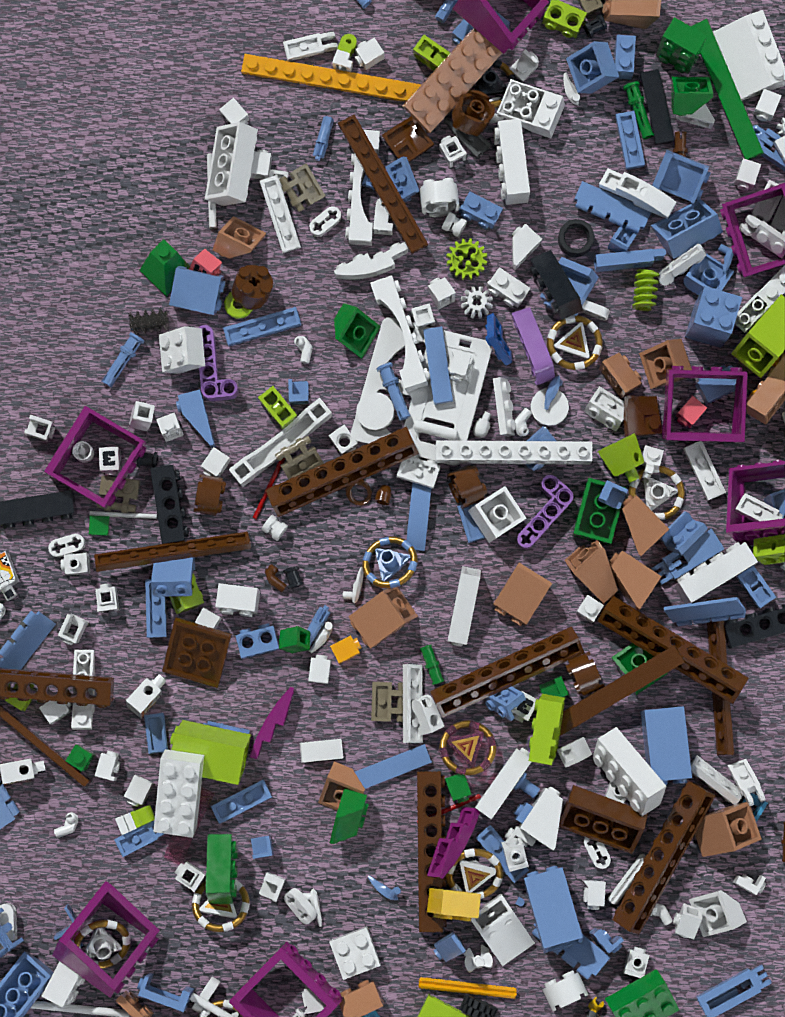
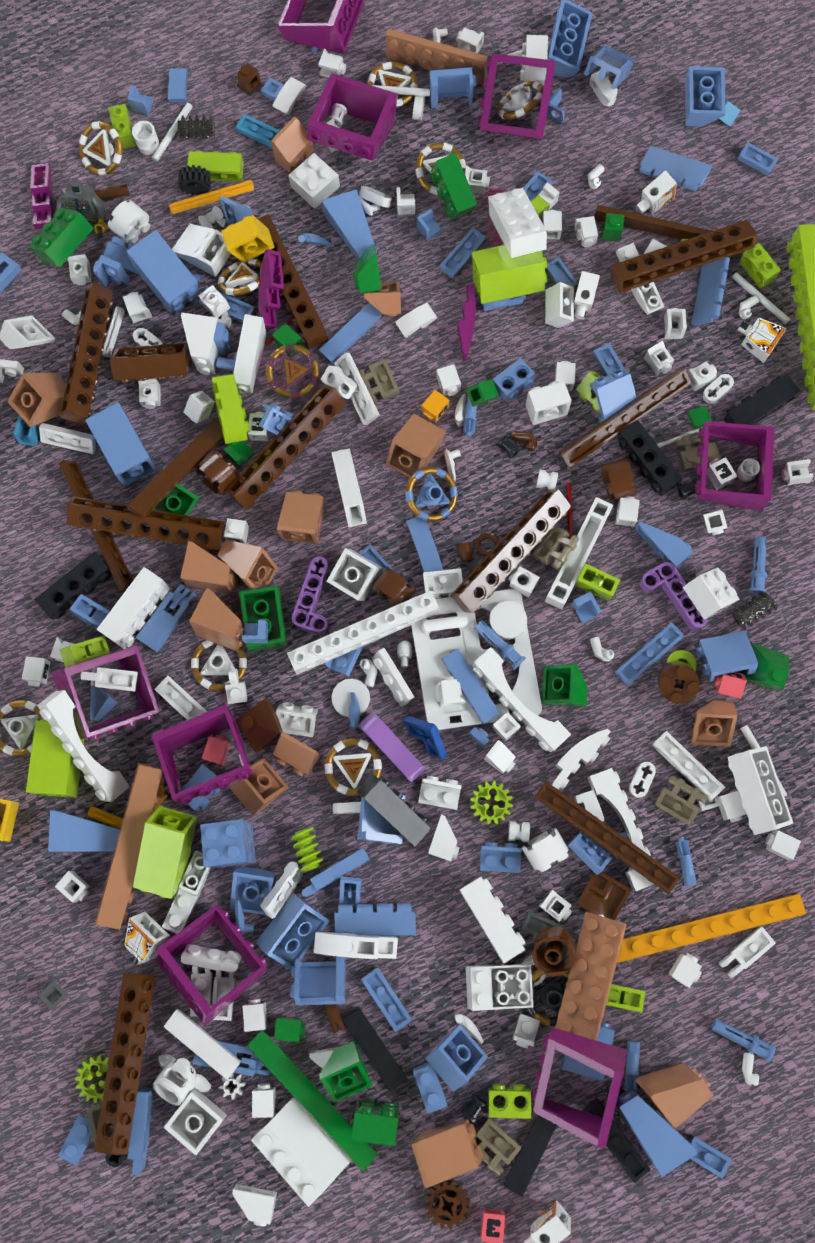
camera: 155 degrees right, 5 degrees down
(170, 427) = (684, 524): white window -> none
(176, 696) = (559, 305): none -> white brick
(196, 652) = (560, 346): reddish brown plate -> none
(340, 888) = (349, 221): none -> medium blue slope
(344, 52) = (710, 960): leg -> none
(432, 664) = (354, 427): green pin -> none
(449, 320) = (479, 736): none -> medium blue plate
(484, 302) = (469, 763): white gear -> none
(578, 224) = (381, 872): black tyre -> none
(623, 457) = (262, 677): lime torso -> none
(628, 771) = (142, 403): white brick -> none
(636, 101) = (397, 1044): green pin -> none
(683, 533) = (177, 634): medium blue bracket -> none
(687, 921) = (48, 317): white brick -> none
(702, 611) = (127, 567): medium blue windscreen -> none
(722, 151) = (289, 1029): none -> green brick
(746, 780) = (40, 445): white hinge -> none

